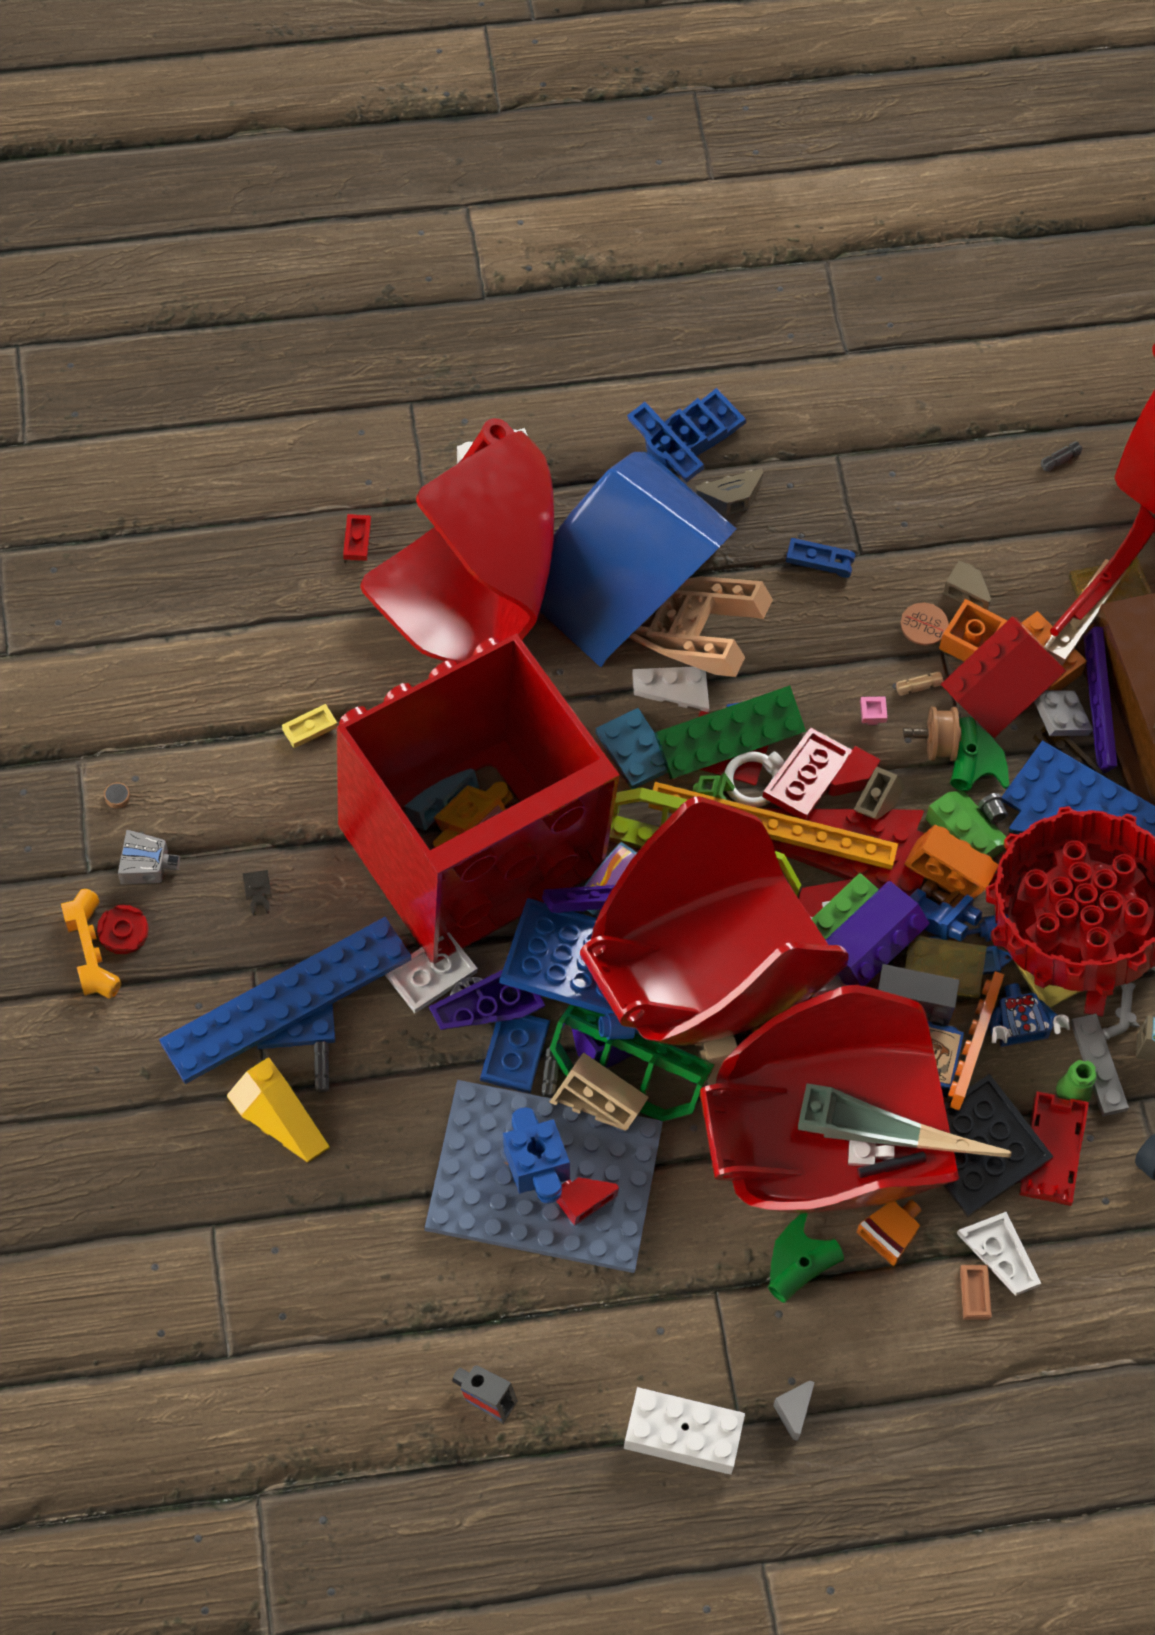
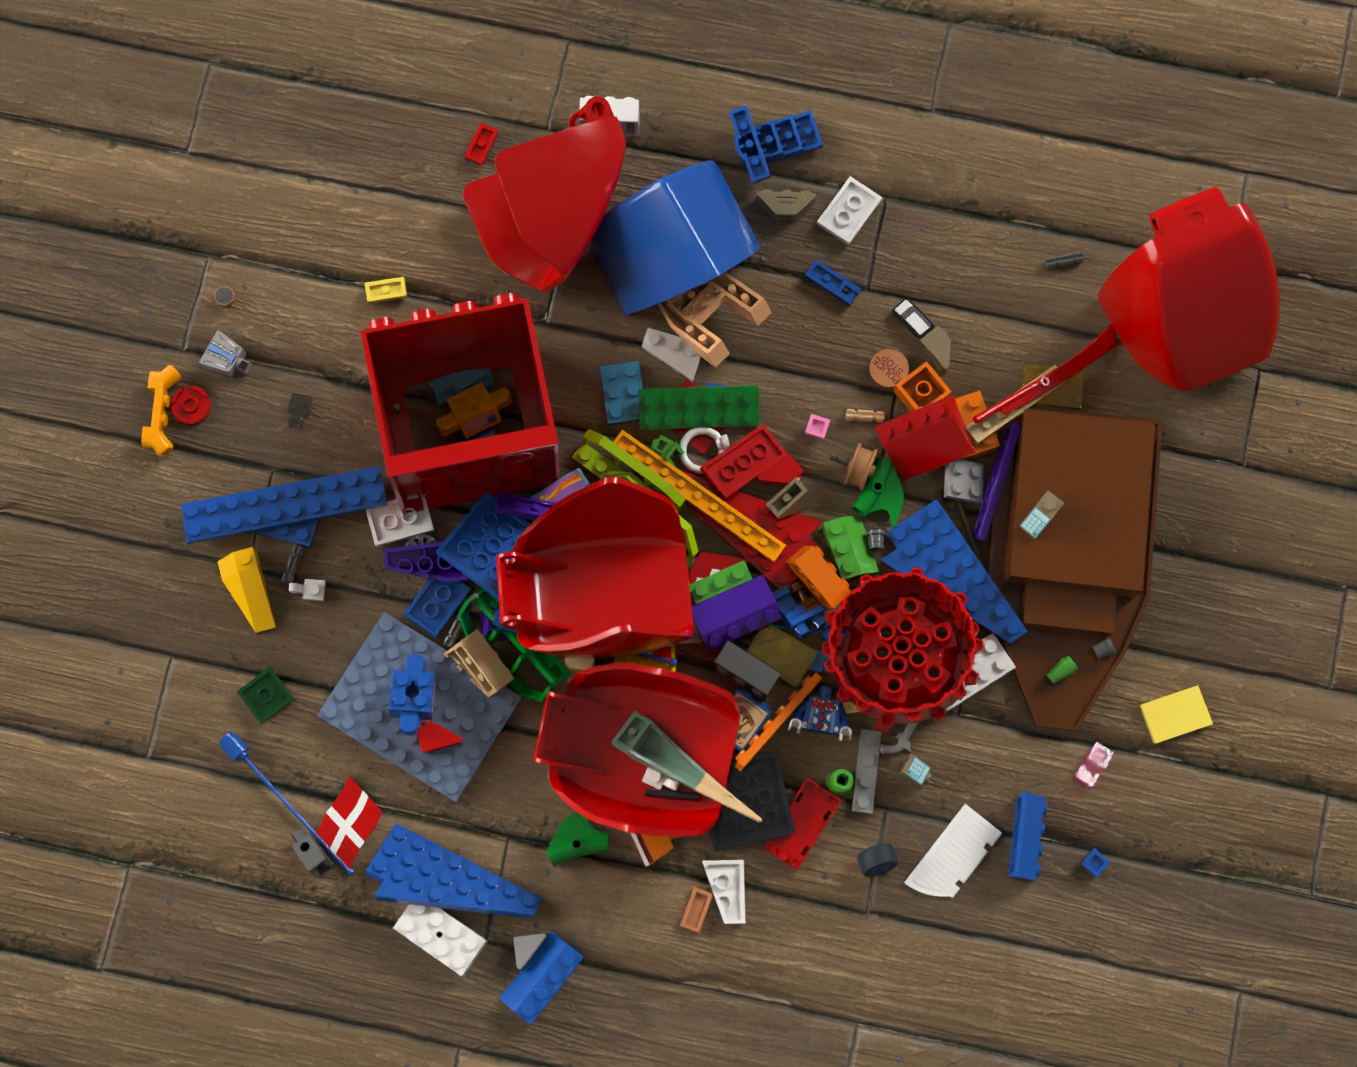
camera: 25 degrees right, 15 degrees up
(350, 1228) = (265, 695): none -> dark green plate
(356, 1087) = (312, 589): none -> white plate
(510, 1342) = (345, 823): none -> flag
(646, 1363) = (431, 876): none -> blue wing
(804, 478) = (849, 210): none -> white plate
(828, 1437) = (541, 978): none -> blue slope
(931, 567) = (913, 318): none -> slope

